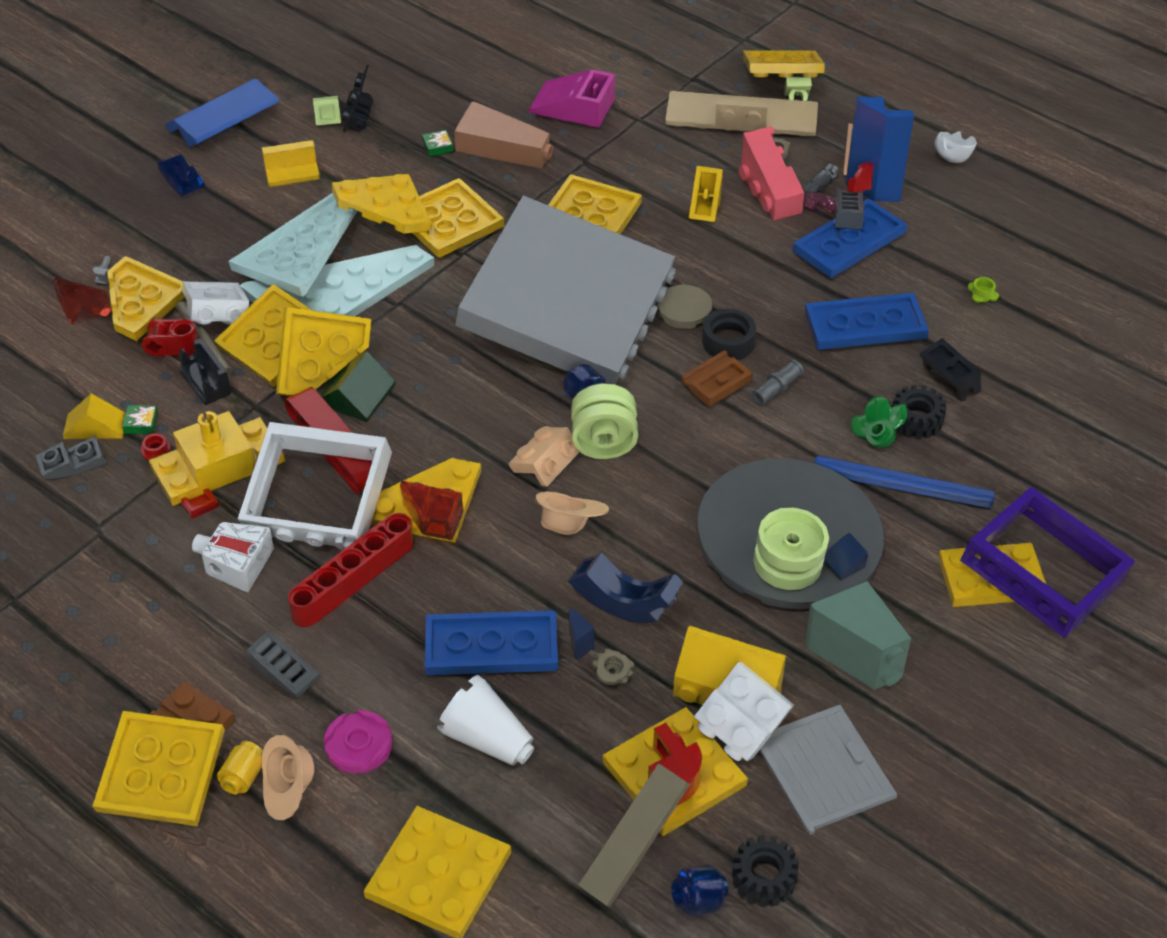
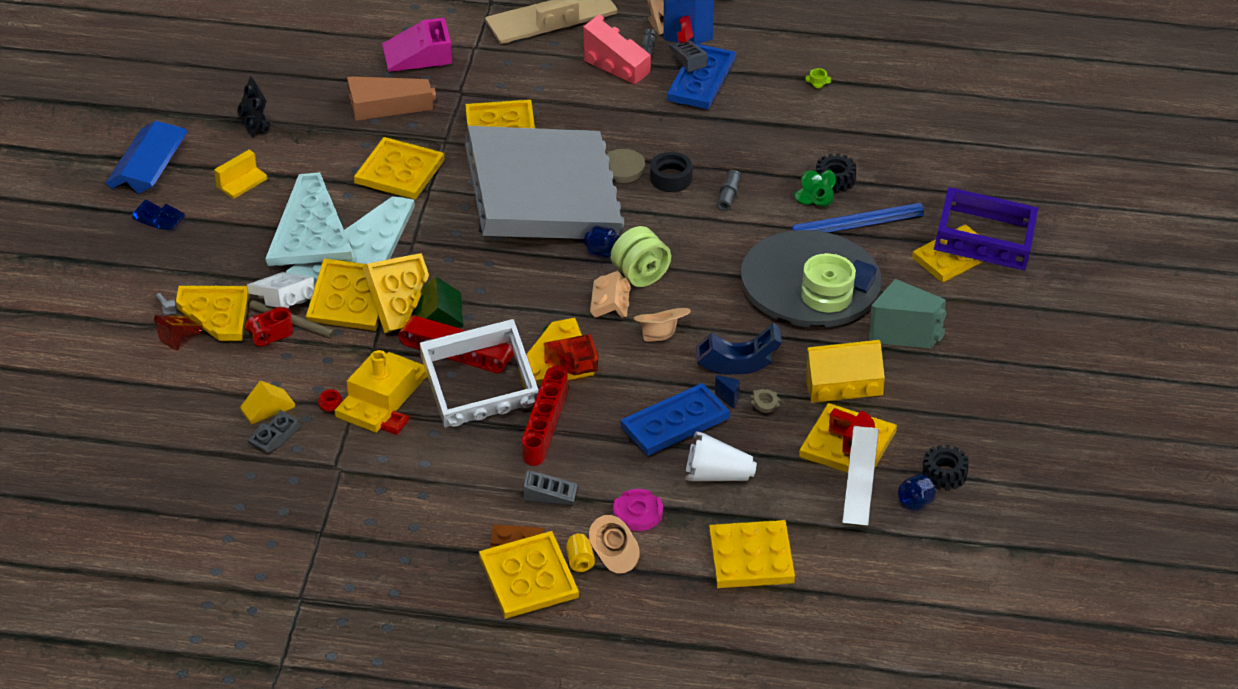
camera: 30 degrees left, 5 degrees down
(140, 419) = (299, 388): green tile -> none
(204, 373) = (319, 339): black hinge -> none
(235, 553) = (455, 439): white torso -> none
(326, 110) = (231, 125): yellowish green tile -> none
(384, 199) = (348, 171): yellow plate -> none
(437, 143) = (338, 119): green tile -> none
(706, 194) = (577, 82): yellow slope -> none
(717, 378) = (686, 203): dark orange plate -> none
(743, 712) = (871, 386): white plate -> none
(823, 200) = (663, 57): clear pink arm -> none
(825, 769) = (934, 402): light grey piece -> none
(866, 321) = (756, 128): blue plate -> none
(952, 367) = (839, 134): black hinge -> none

